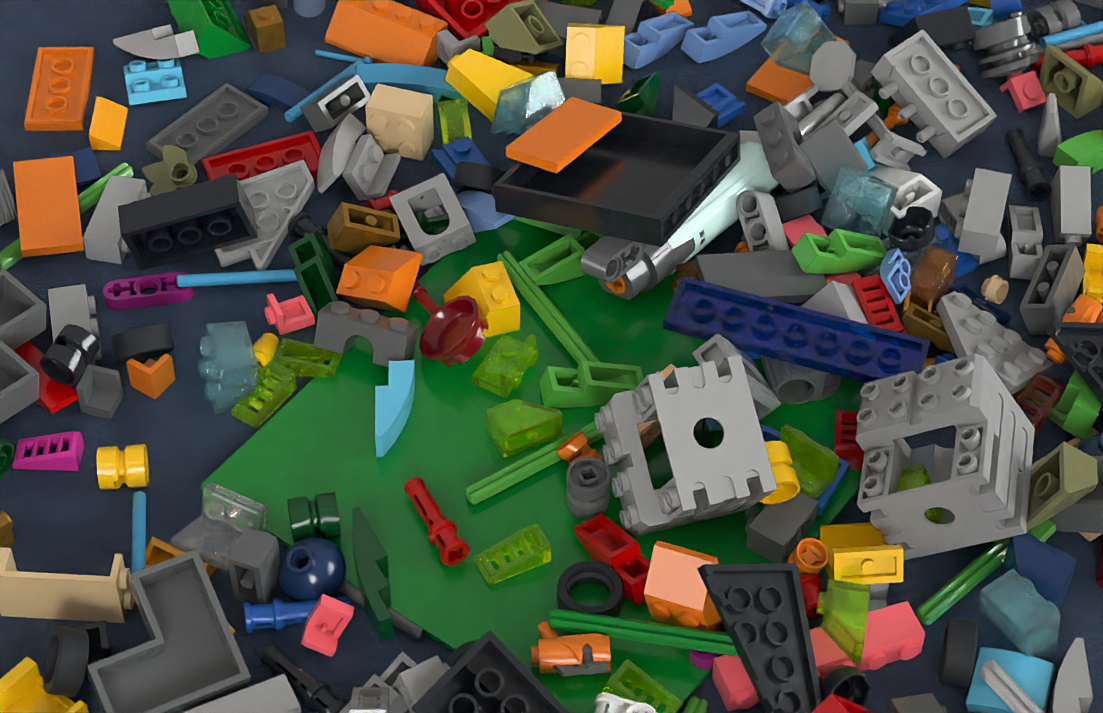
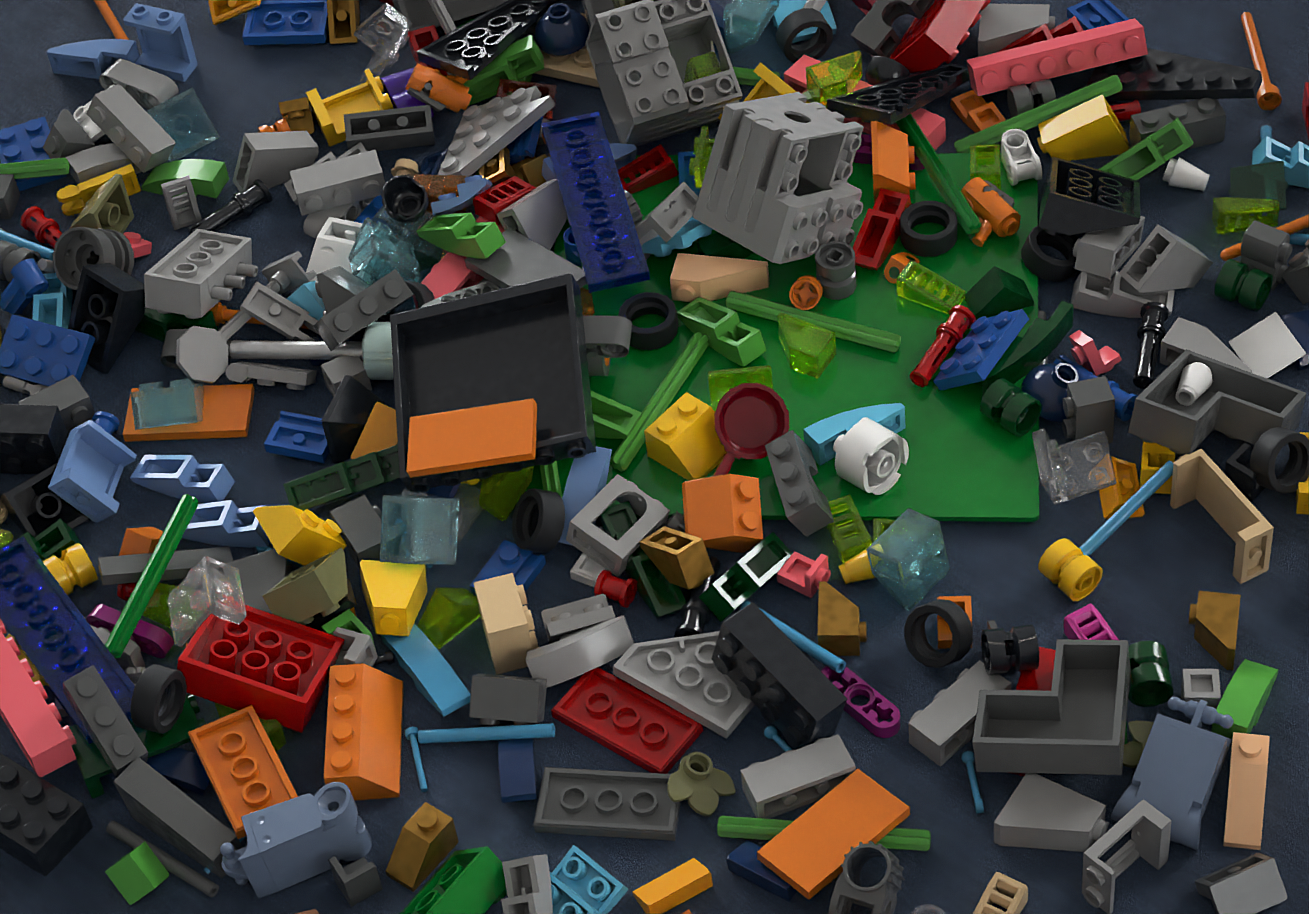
camera: 115 degrees left, 0 degrees up
(212, 660) = (1193, 383): none -> white cone
(224, 303) = (839, 623): none -> pearl gold slope
(346, 388) = (870, 456): none -> white brick
(394, 531) = (980, 349): none -> blue plate
(458, 603) = (998, 293): none -> dark green slope
(563, 551) = (899, 261): none -> orange piece
(649, 326) = (645, 304): none -> black tyre

